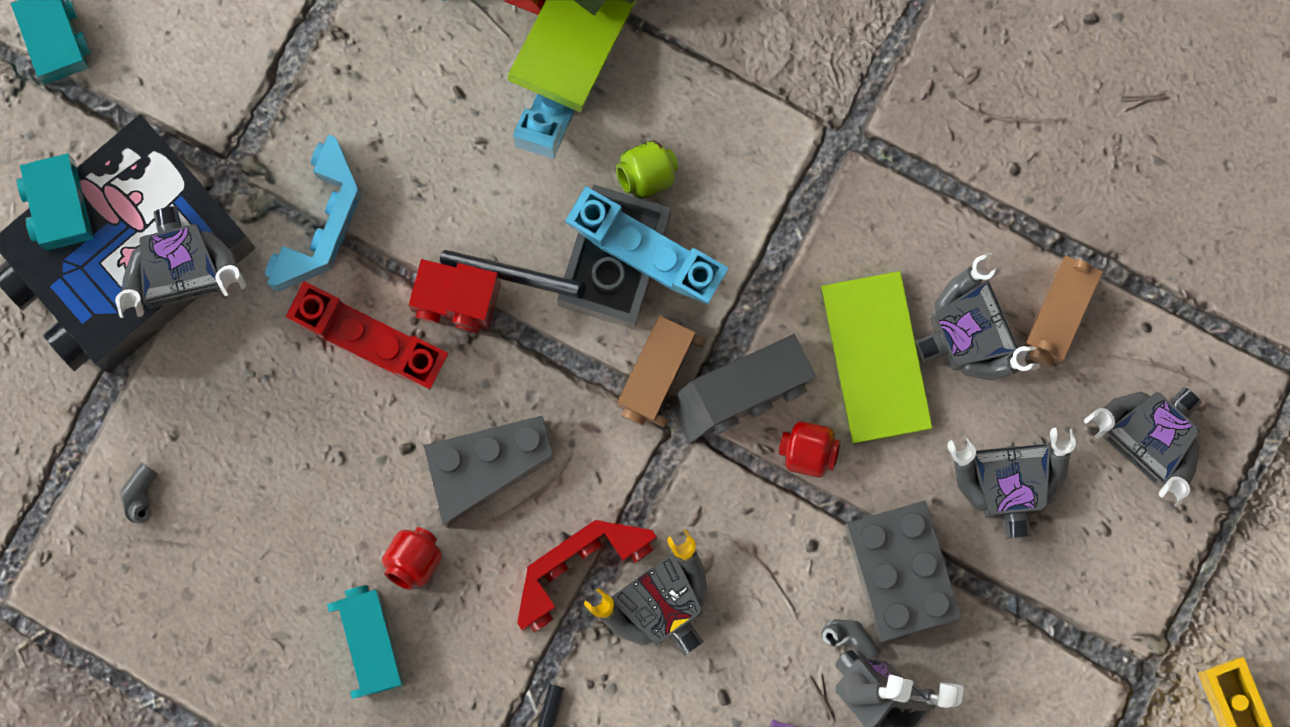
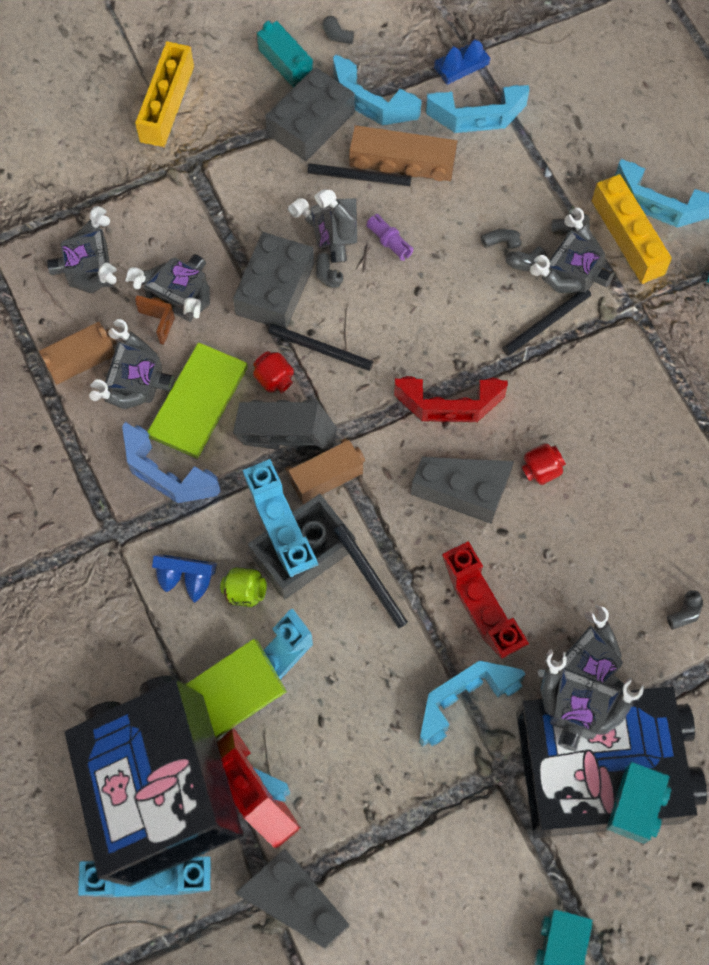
camera: 145 degrees left, 15 degrees down
(208, 348) = (595, 651): none -> torso
(368, 641) = (600, 436): teal brick -> none
(455, 294) = (411, 590): red brick -> none
(659, 601) = (418, 351): dark grey torso -> none
(717, 152) = (197, 573): none -> blue tile
(783, 530) = (321, 347): none -> black bar
(899, 245) = (195, 486): none -> medium blue slope
(1014, 437) = (159, 309): none -> dark orange bracket

